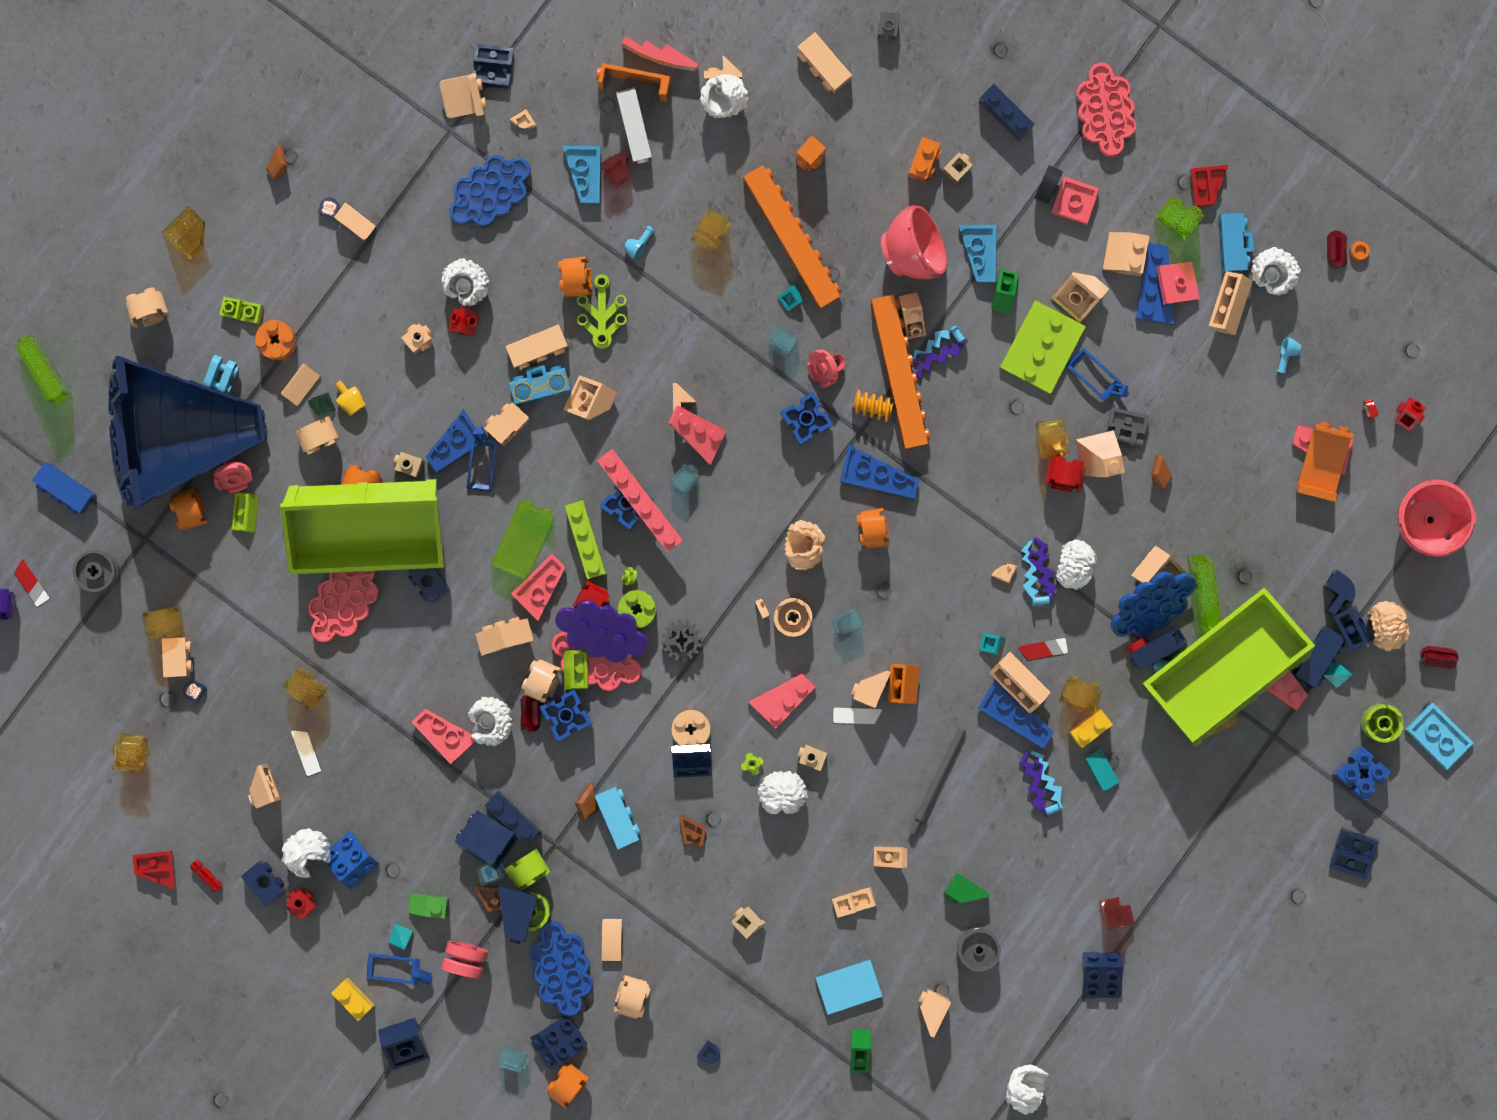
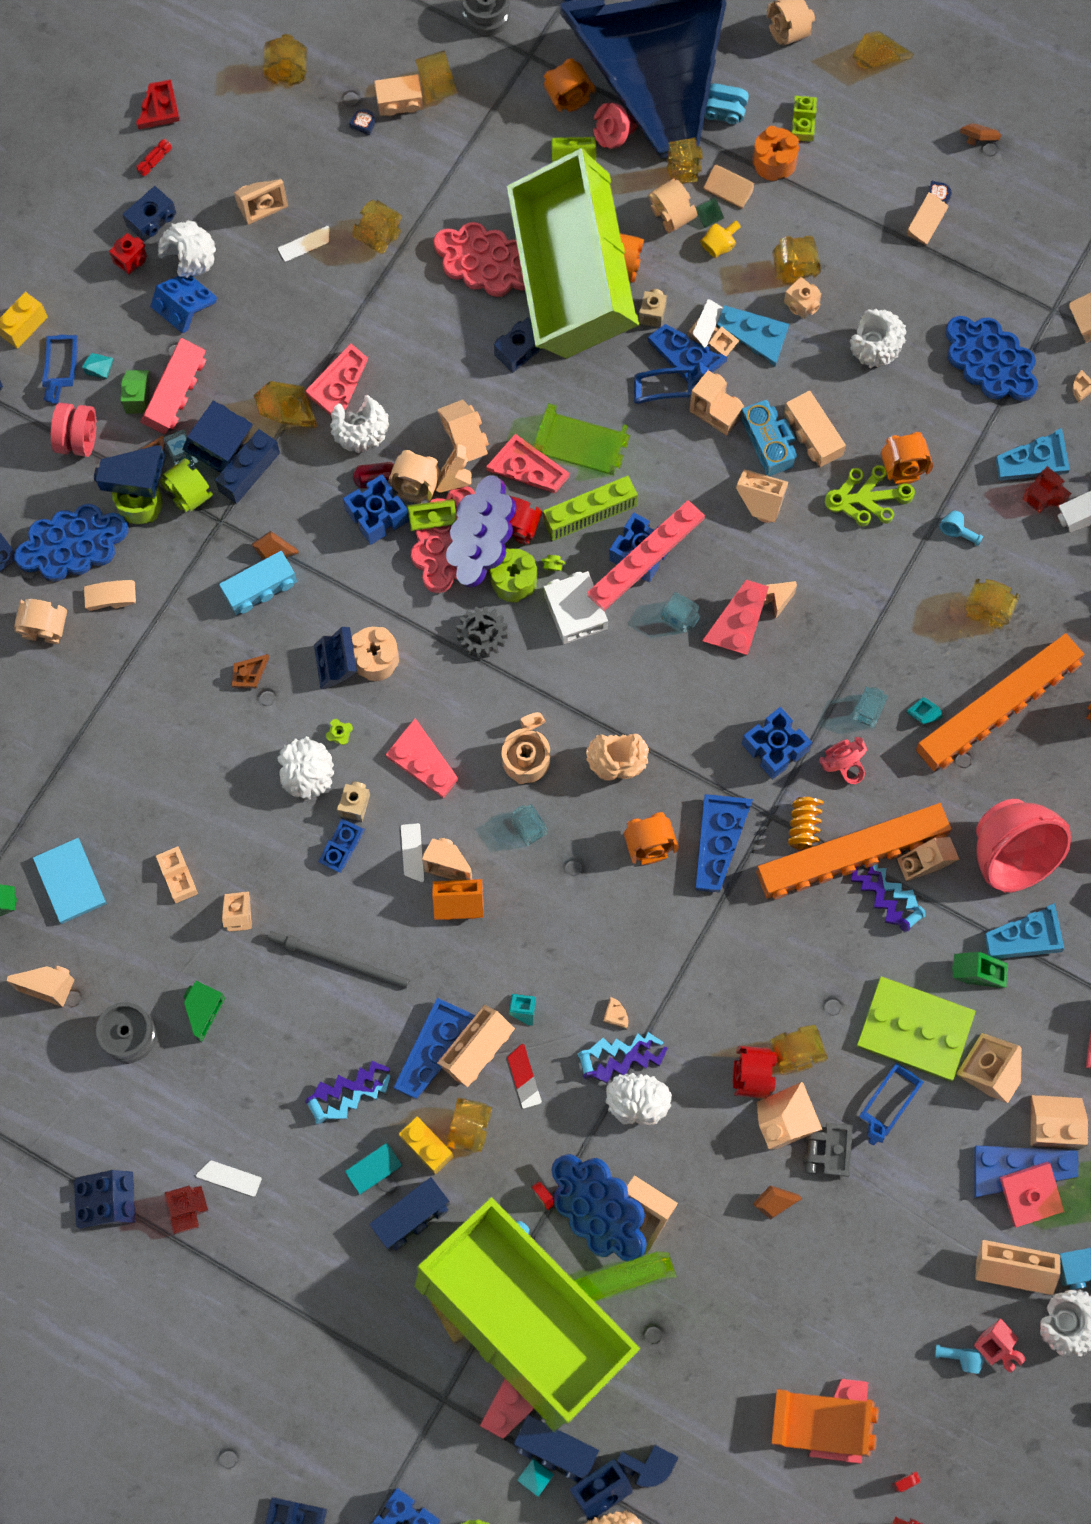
camera: 85 degrees right, 15 degrees down
(276, 419) = (684, 160): none -> clear yellow brick
(383, 338) = (796, 259): none -> clear yellow brick
(427, 421) = (707, 322): none -> white sticker
(432, 873) = (173, 385): none -> coral brick
(440, 382) = (757, 332): none -> dark azure wing
(441, 418) = (720, 340): none -> light nougat slope
(462, 781) = (285, 404): none -> clear yellow slope
(463, 321) = (831, 345): red brick -> none
(541, 647) = (453, 472): none -> light nougat slope
(669, 566) = (572, 609): none -> white brick
(745, 928) = (141, 747): tan brick -> none
(845, 770) = (341, 845): none -> blue slope
(1094, 879) = (230, 1178): none -> white sticker
(1140, 745) = (410, 1215): none -> dark blue brick
(1158, 648) = (543, 1224): dark blue slope -> none
(1283, 327) = (997, 1344): none -> coral brick

